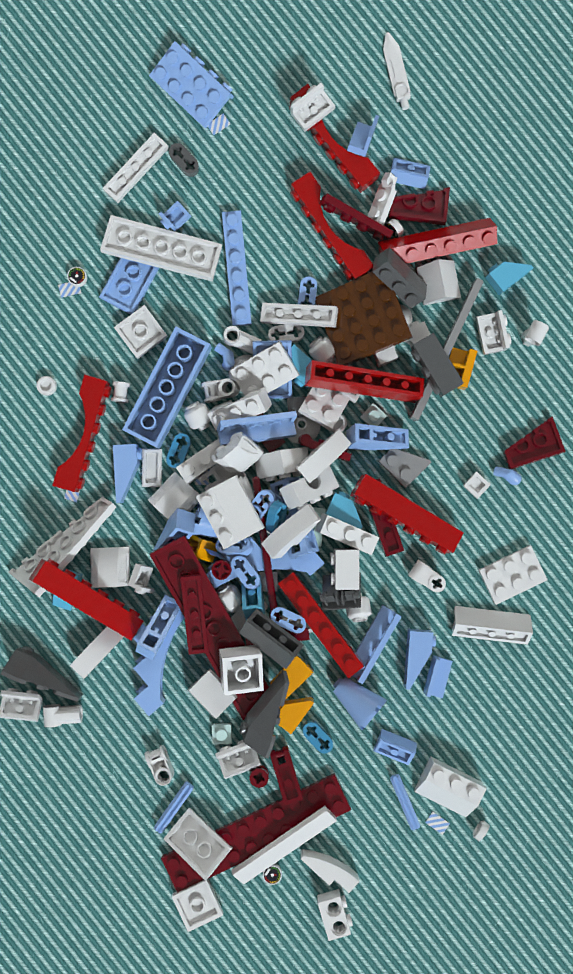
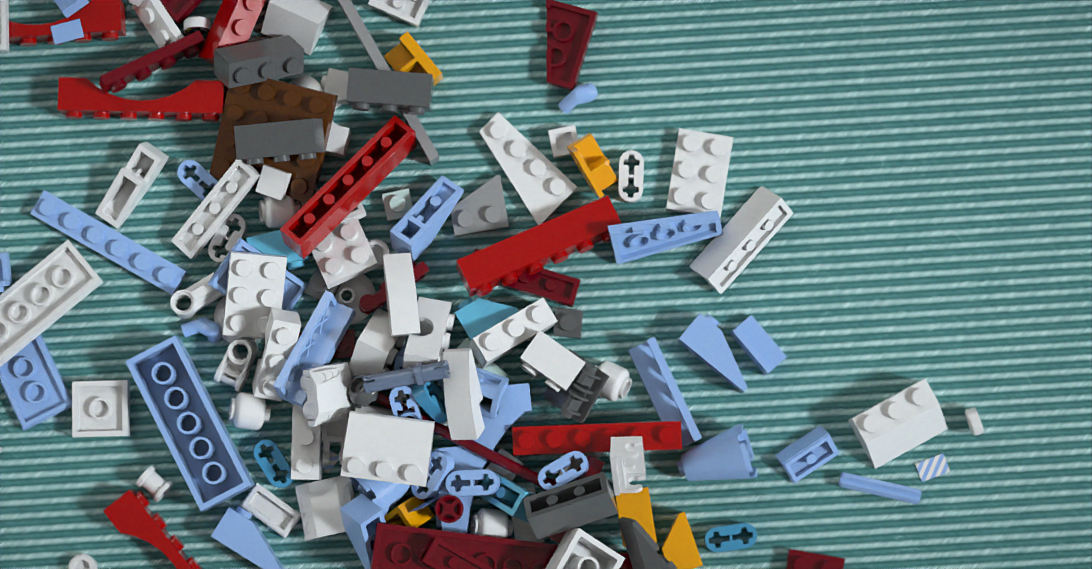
camera: 55 degrees left, 5 degrees down
(254, 473) = (358, 394): none -> dark grey plate
(278, 257) = (131, 184): none -> white slope
(285, 500) = (415, 375): none -> sand blue pin
(318, 652) = (627, 463): none -> white hinge
(336, 336) = (273, 182): none -> white tile
(339, 156) = (67, 31): none -> light blue sticker
(363, 323) = (279, 140): none -> dark grey brick
(374, 561) = (568, 323): none -> dark grey plate
(424, 575) = (626, 276): white piece -> none
(444, 481) = (534, 177): none -> white wing
(456, 573) = (654, 236): none -> light blue wing
(475, 510) = (592, 164): none -> light orange panel
(485, 540) = (637, 177): none -> white beam

